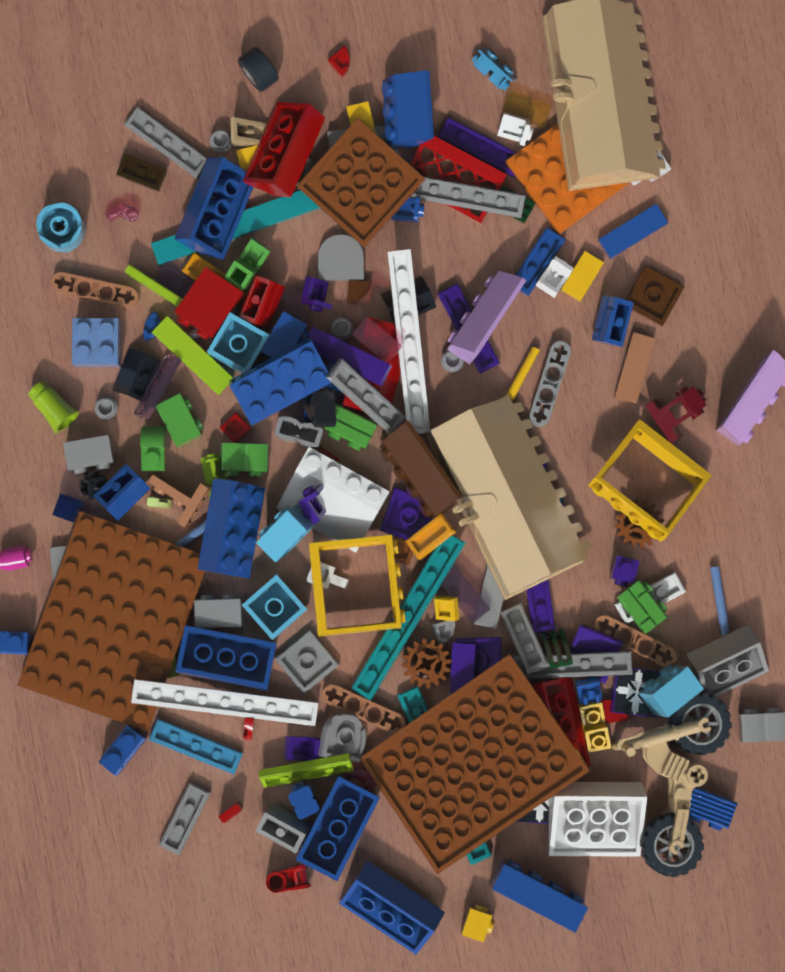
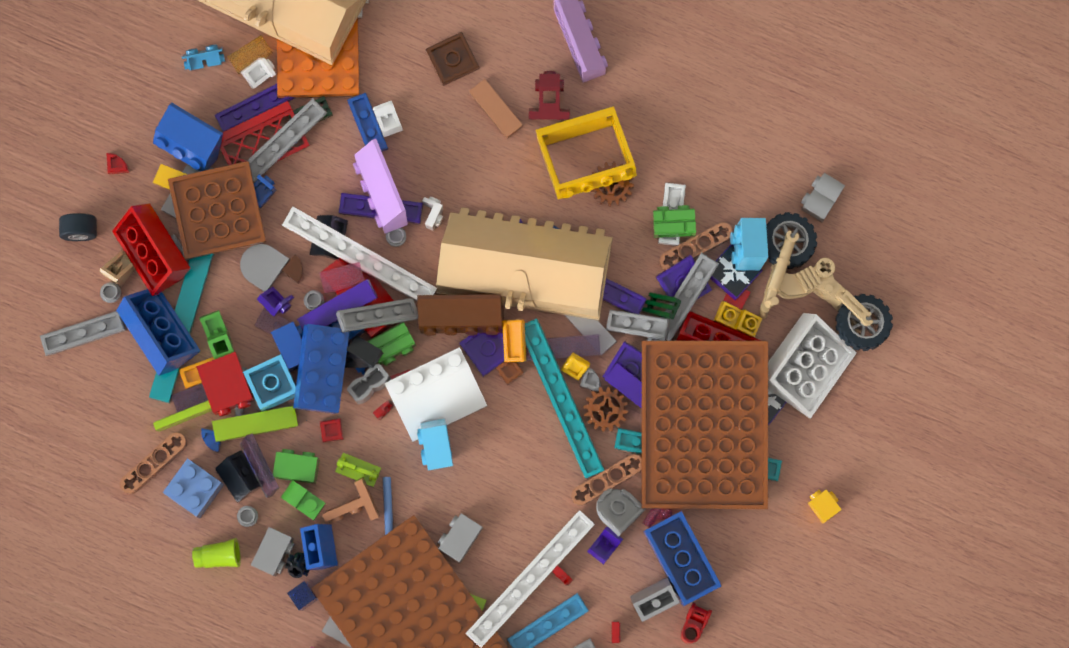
camera: 50 degrees left, 5 degrees down
(60, 214) = (77, 450): medium azure brick -> none
(124, 211) = (109, 401): clear pink arm -> none
(141, 172) = (91, 367): dark brown plate -> none
(159, 502) = (345, 526): yellowish green tile -> none
(226, 658) = (498, 554): blue brick -> none
(231, 528) = (404, 483): blue brick -> none
(243, 458) = (358, 439): bright green brick -> none
(245, 156) = (135, 281): yellow tile -> none
(261, 302) = (252, 344): red brick -> none
(274, 607) = (485, 492): medium azure brick -> none
(285, 462) = (382, 410): none -> red tile
(303, 799) = (644, 569): blue brick -> none
(306, 770) = (623, 553): lime tile -> none
(307, 661) = (542, 497): light grey tile -> none
(310, 505) = (431, 413): dark purple bracket -> none
(329, 577) = (487, 440): white plate -> none
(392, 908) = (769, 561): blue slope -> none
(393, 570) = (521, 385): yellow window -> none
(494, 384) = (435, 217): none -> white bracket
(522, 373) = (441, 191): yellow bar -> none
(538, 895) = (837, 443): blue brick -> none
(547, 383) = (461, 179): light grey beam -> none
(582, 276) = (401, 99): yellow tile -> none
(588, 690) = (709, 305): blue tile -> none
(612, 321) = (450, 99): blue brick -> none
(624, 571) = (638, 218): dark purple brick -> none
(633, 231) = (395, 41): blue tile -> none
(711, 808) = (857, 275): blue brick -> none
(720, 601) = (709, 165): medium blue bar -> none
(728, 661) = (758, 188): light grey slope -> none

